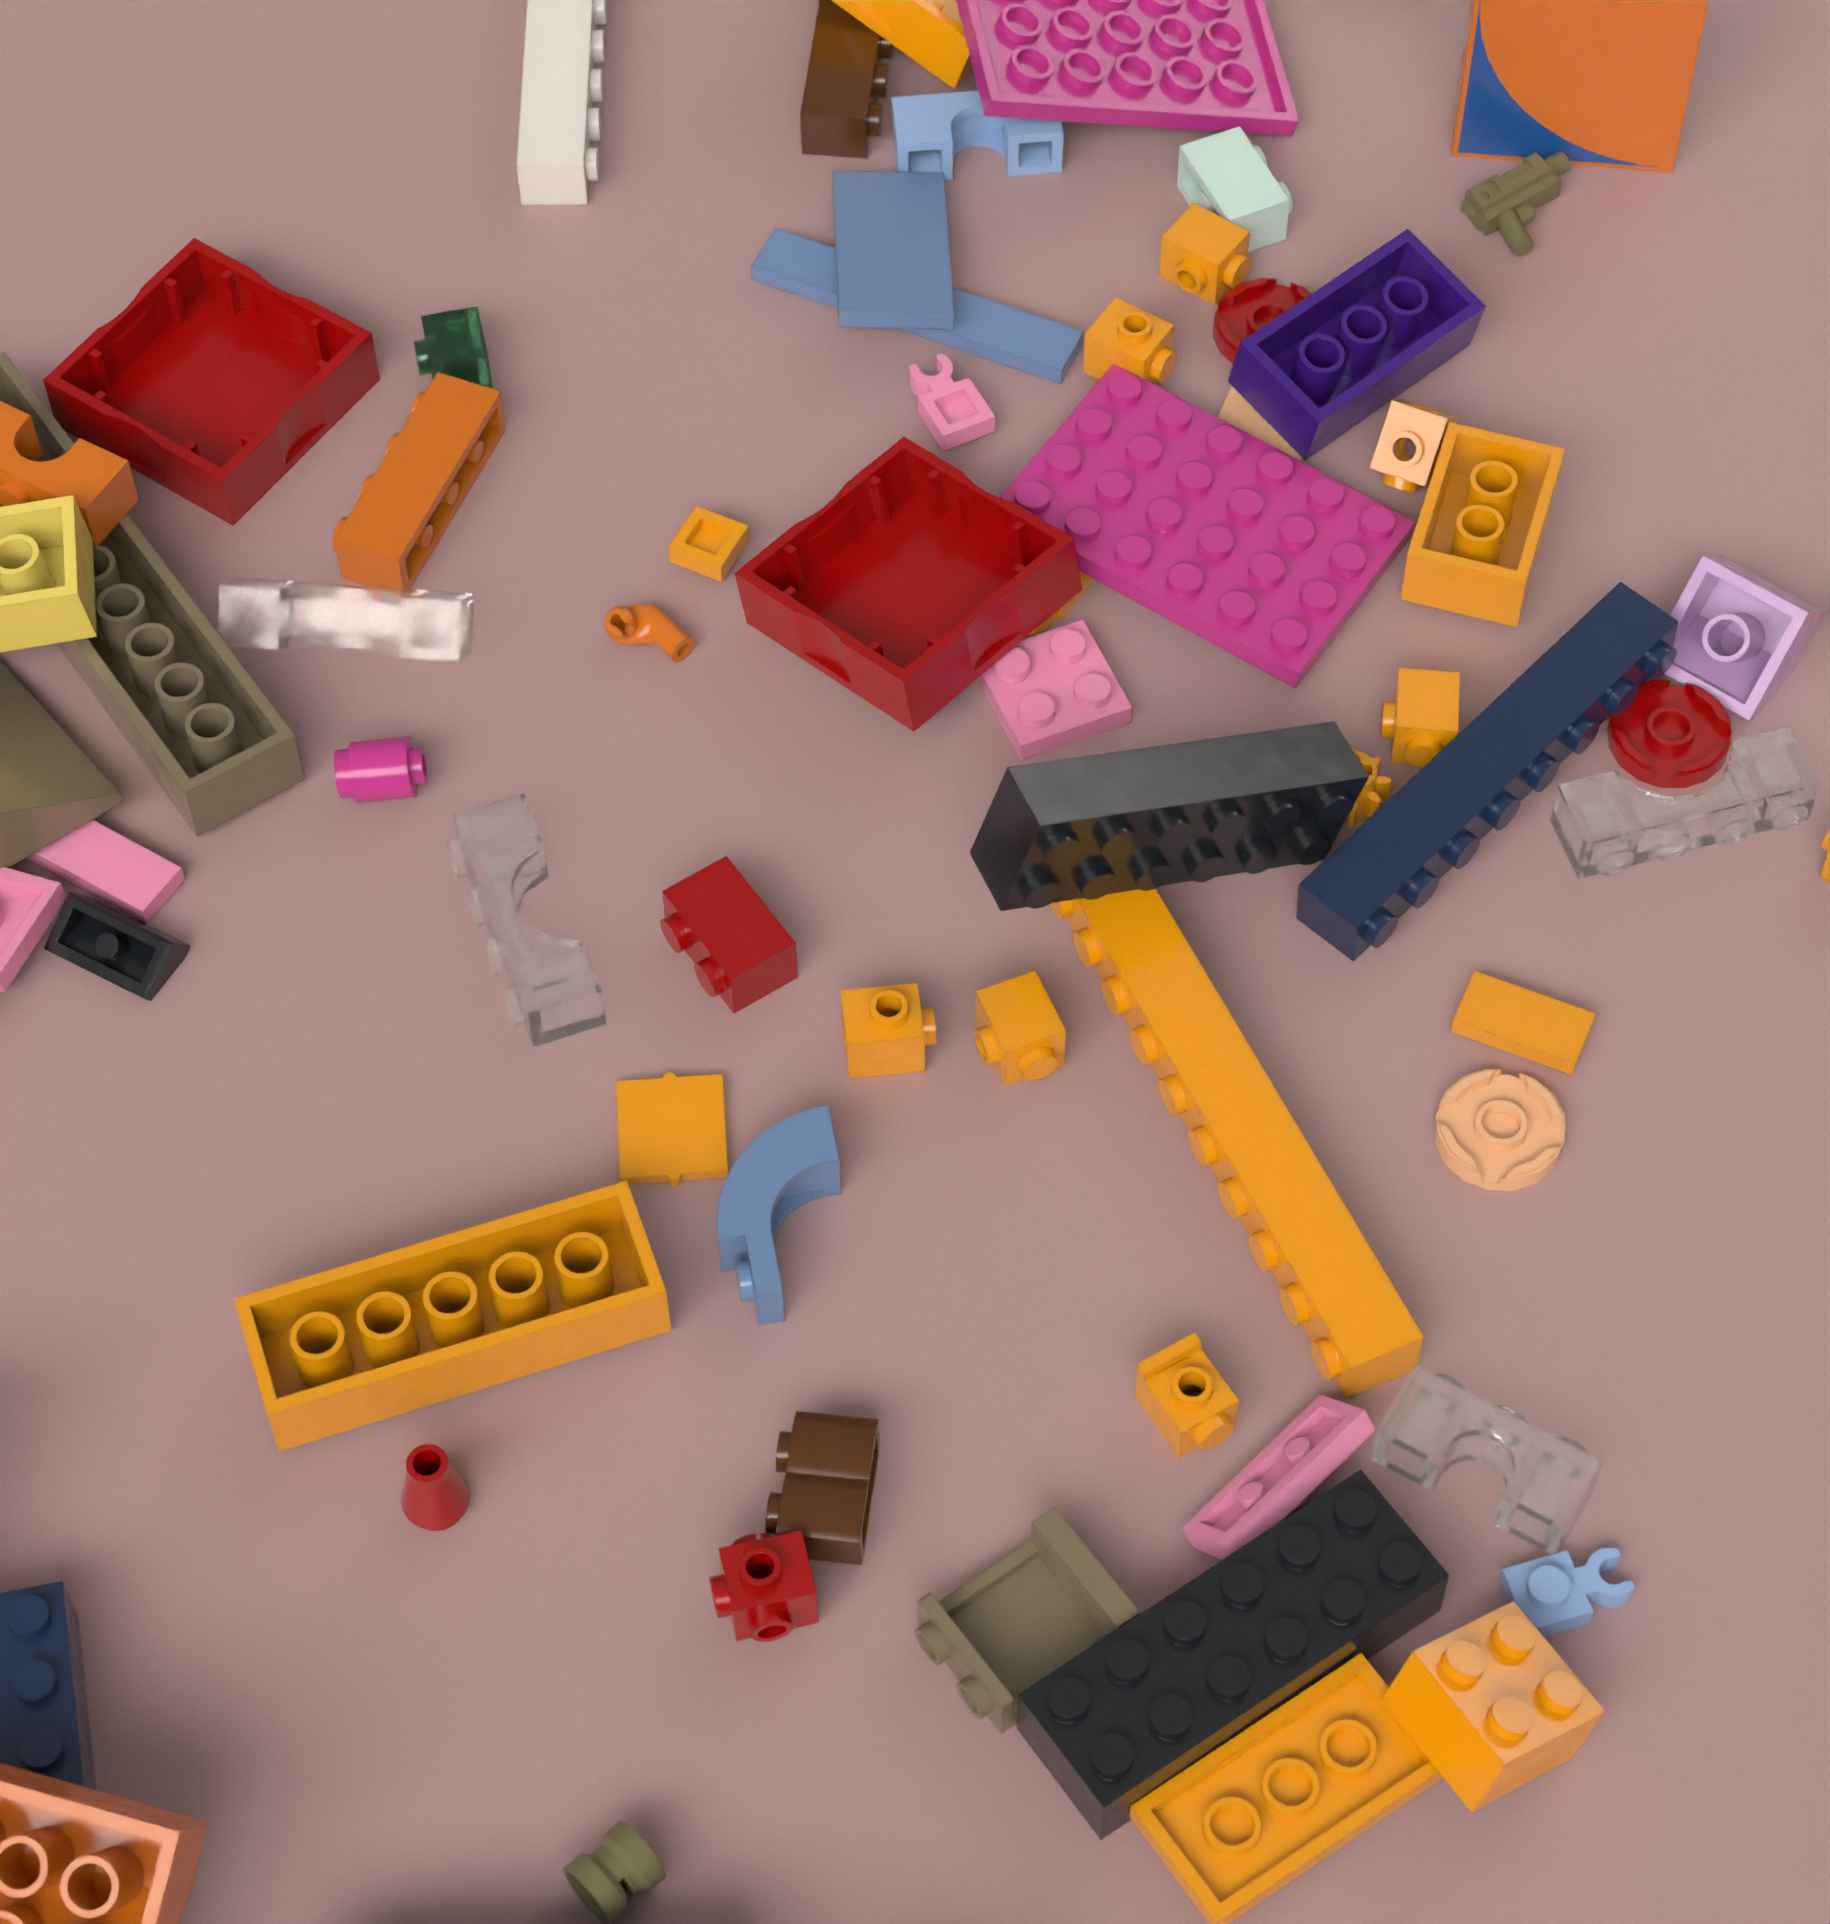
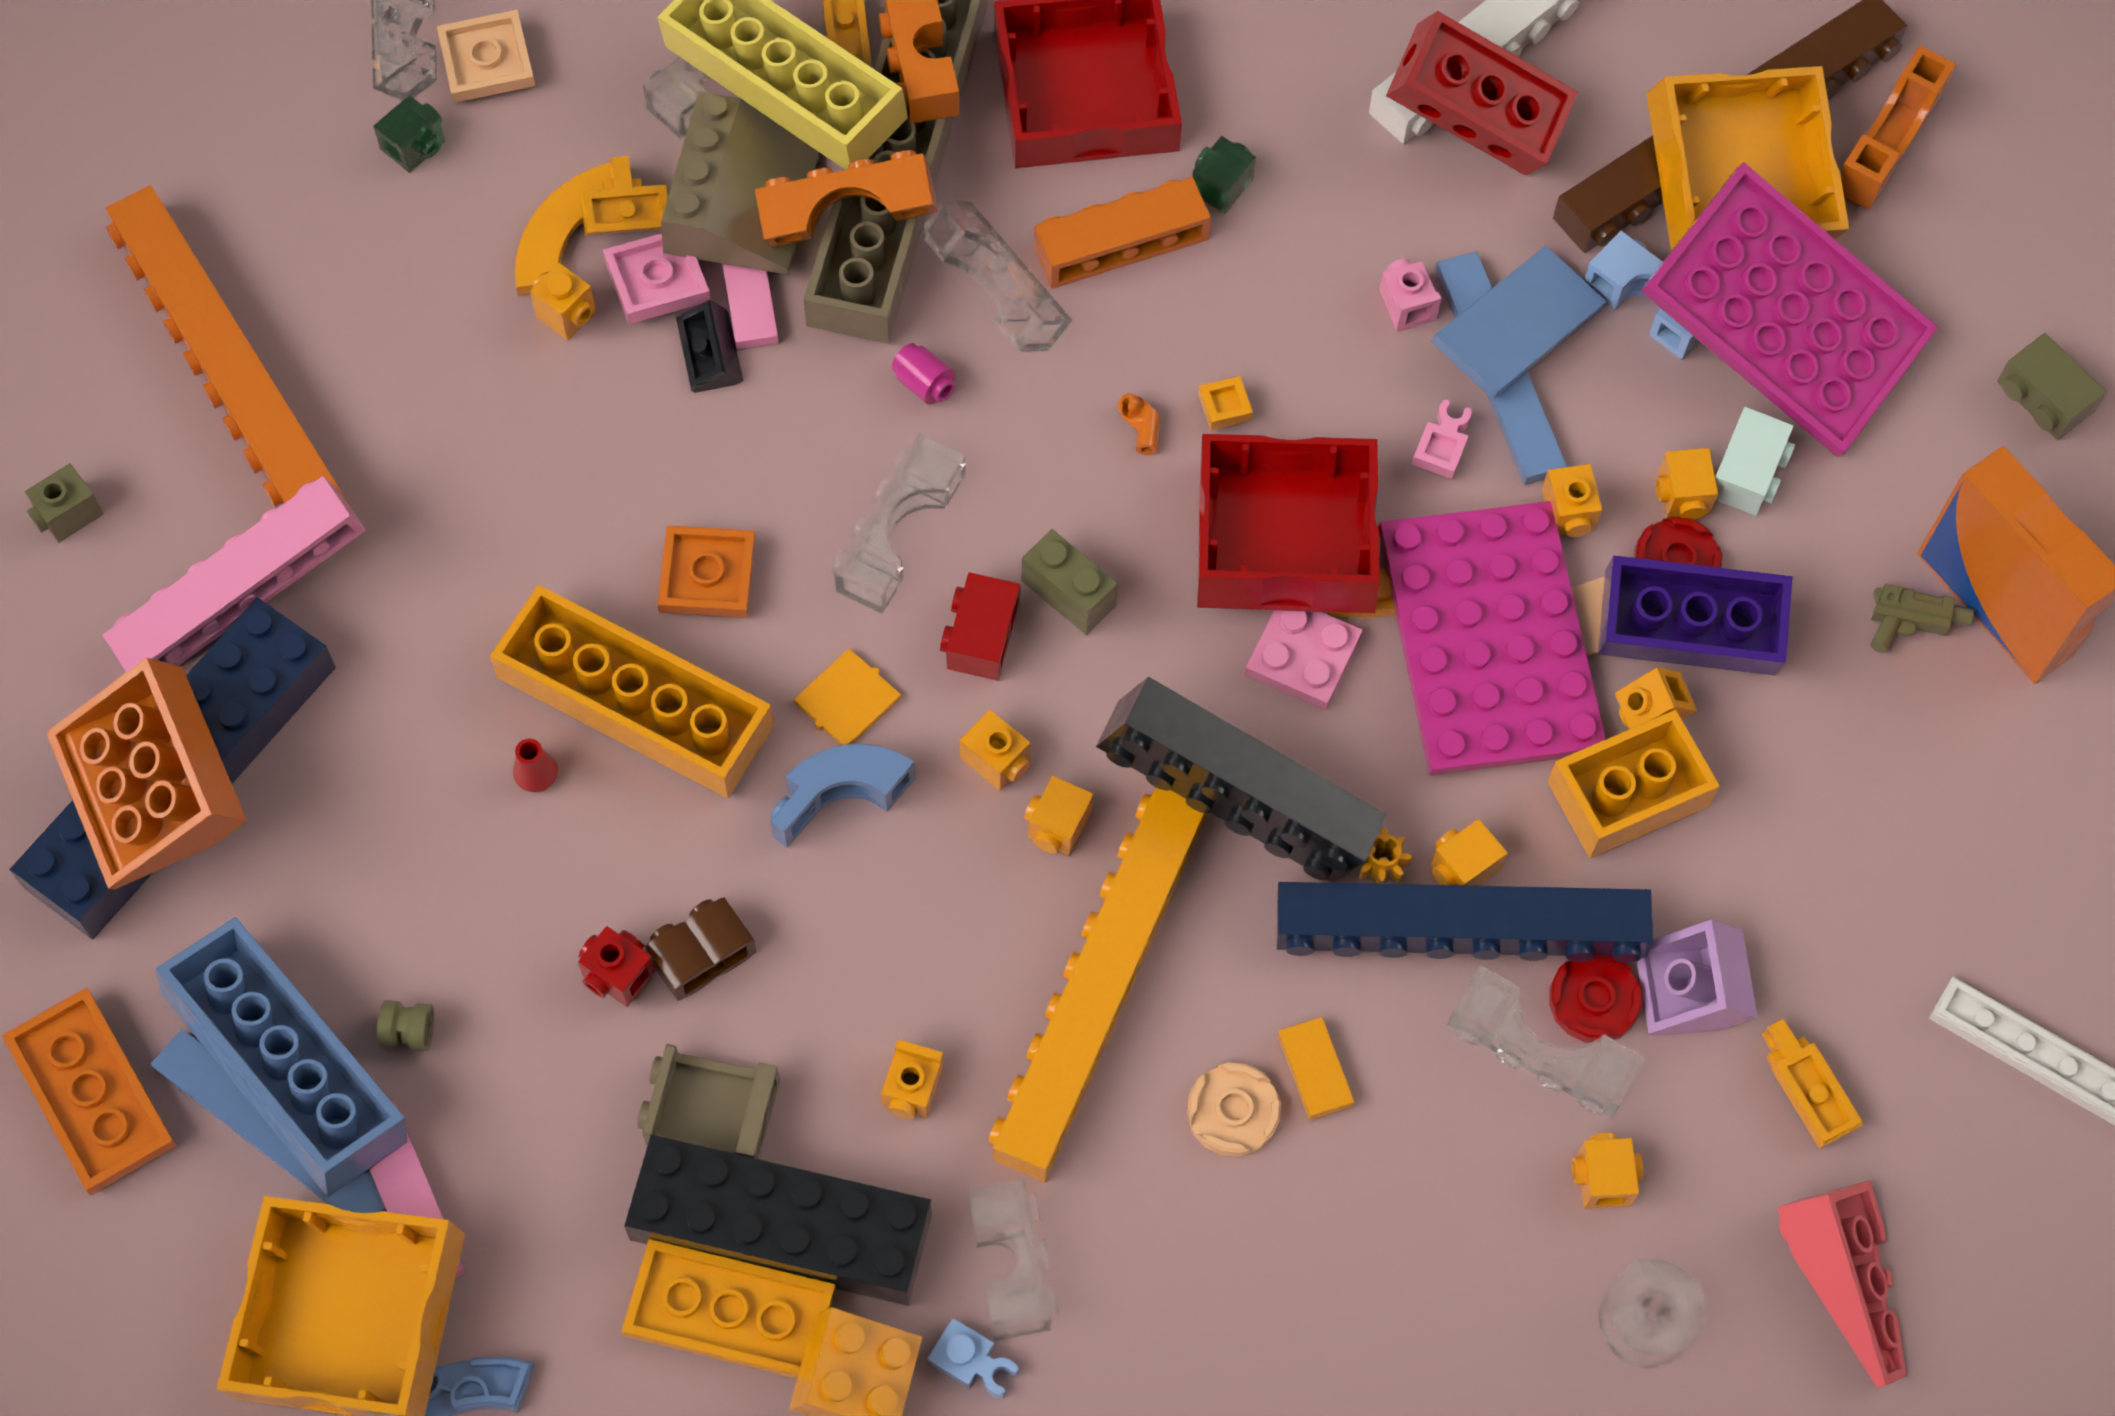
camera: 45 degrees right, 10 degrees up
(169, 598) = (793, 208): none -> orange arch
(382, 1142) = (706, 571): none -> orange plate
(629, 80) = (1482, 93): none -> red brick
(761, 312) = (1409, 294): none -> bright pink brick
(765, 818) = (1069, 581): none -> olive brick
(1279, 1477) = (904, 1163): bright pink plate -> none

